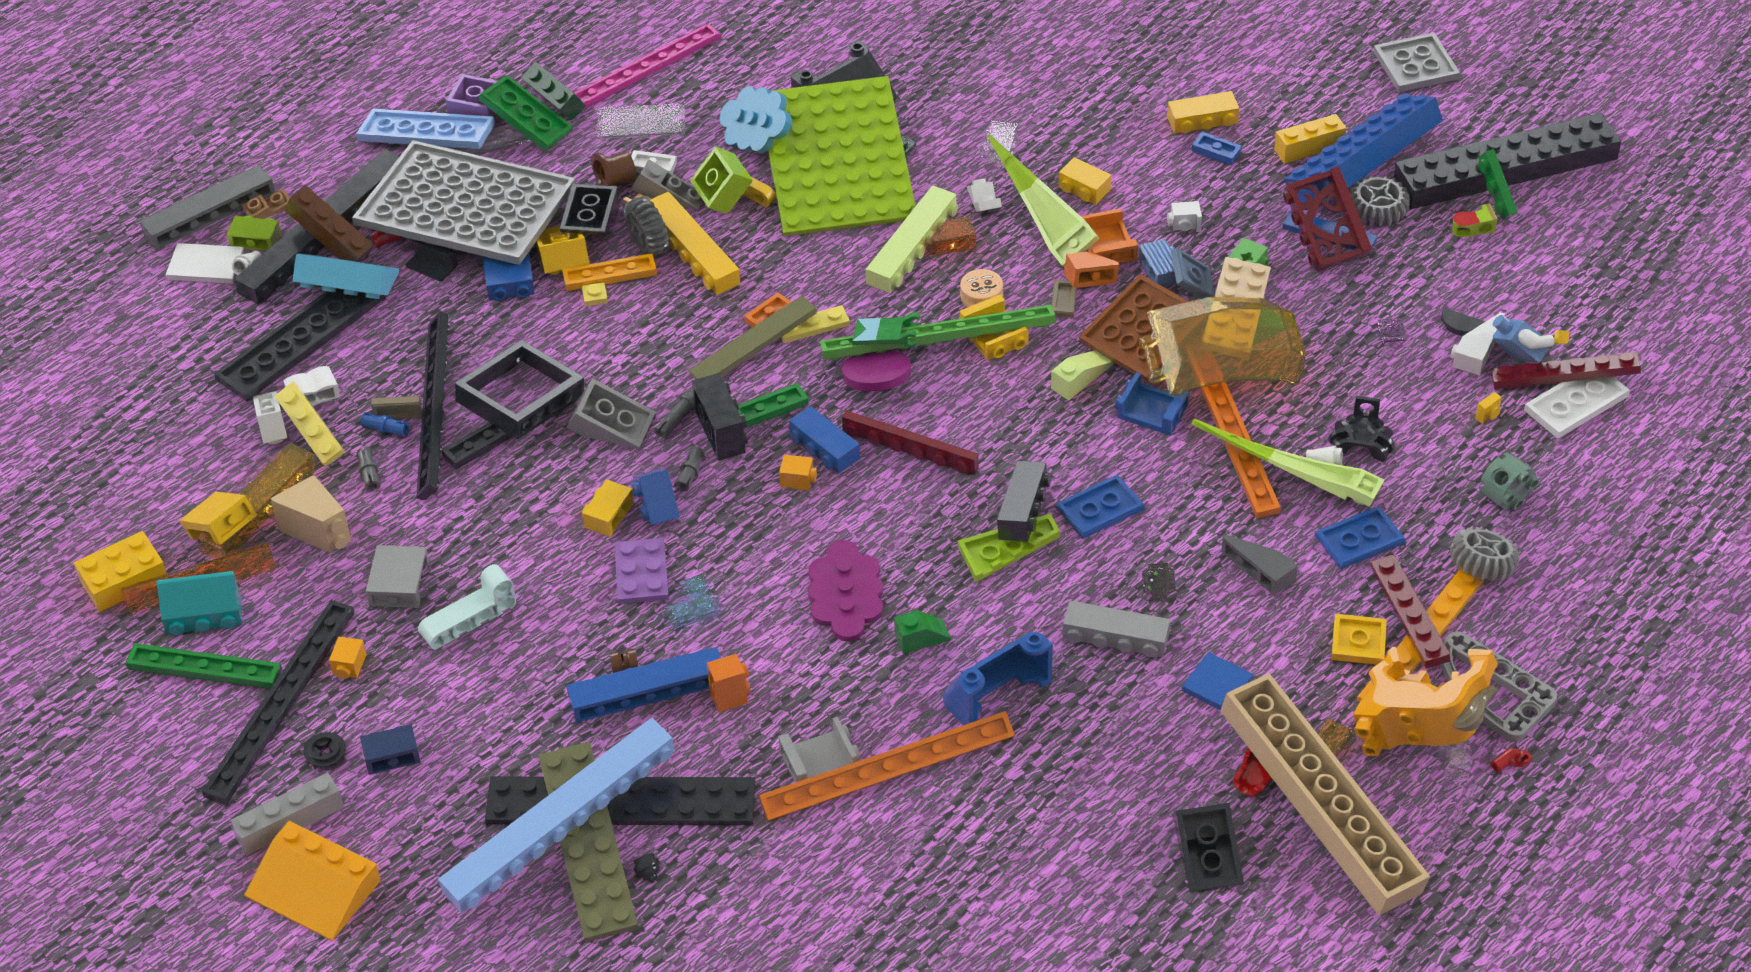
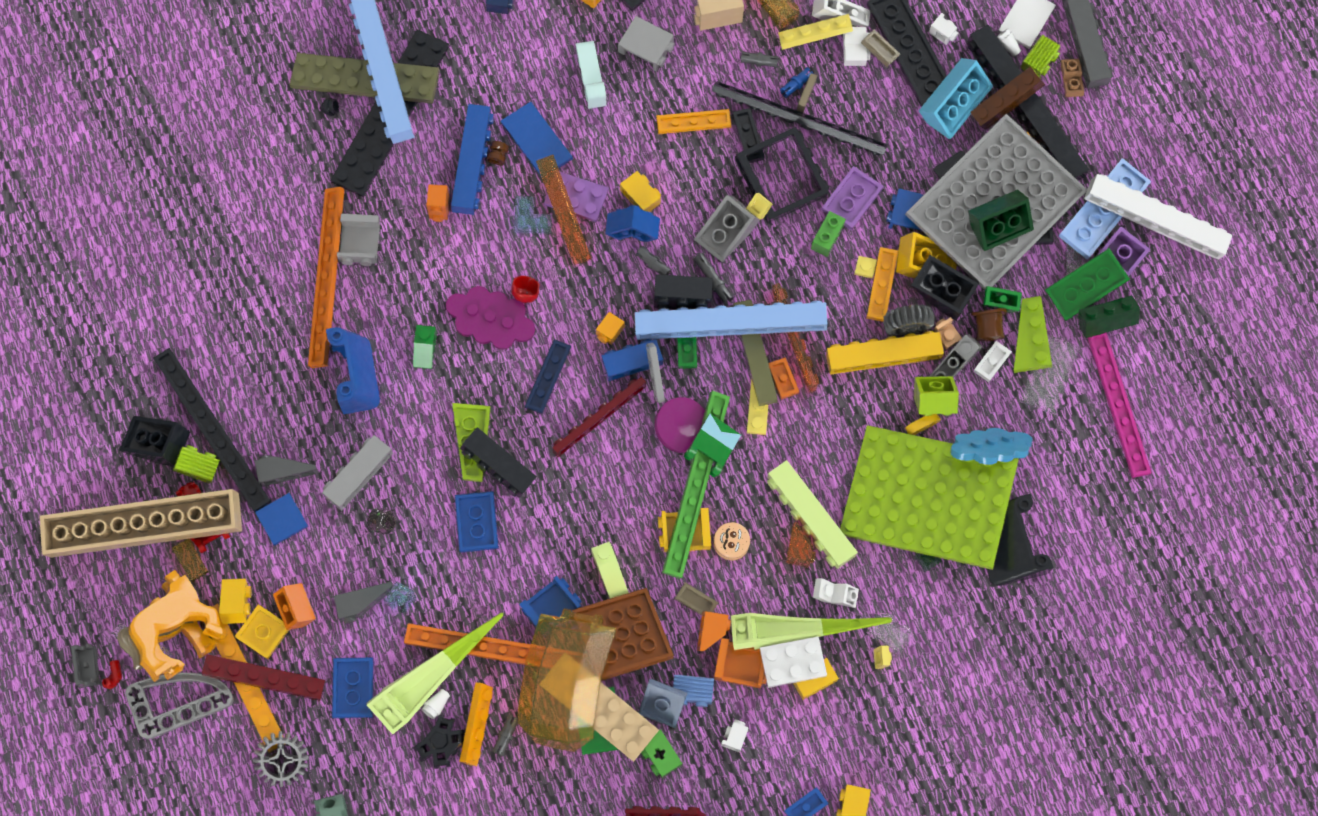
camera: 110 degrees right, 25 degrees up
(253, 321) = (943, 30): none -> white brick
(308, 356) = (880, 48): none -> dark tan tile
(416, 85) = (1158, 216): none -> white brick
(483, 500) = (693, 121): none -> light orange tile
(486, 181) = (1001, 219): none -> dark green slope
(508, 326) = (853, 197): none -> medium lavender plate
(572, 329) = (828, 234): none -> bright green brick
(574, 382) = (759, 206): none -> light yellow plate
(580, 165) = (1002, 298): none -> green slope
(583, 637) = (535, 136): none -> blue tile
(610, 139) = (1032, 339): none -> lime wing
(668, 566) = (563, 210): none -> clear orange plate
(715, 317) = (798, 345): none -> clear orange plate
(732, 362) = (731, 320): none -> light blue brick
(794, 564) = (525, 284): none -> red hair
(830, 402) = (655, 372): none -> light grey tile
(887, 510) = (548, 376): none -> dark blue tile
(1028, 142) = (882, 657): none -> light yellow plate
(1082, 190) = (793, 662): none -> white plate
(1153, 800) = (212, 430): none -> black plate
(1165, 708) = (277, 470): none -> dark grey slope
(1210, 782) = (195, 464): none -> lime brick
(1236, 520) = (399, 595): none -> clear light blue hinge
(1312, 415) = (476, 724): none -> light orange plate
(1312, 615) = (294, 606): none -> orange brick
(1315, 390) = (505, 735): none -> dark grey pin
(1344, 672) = (234, 601): none -> yellow brick
(1522, 789) = (85, 665): none -> dark grey hinge

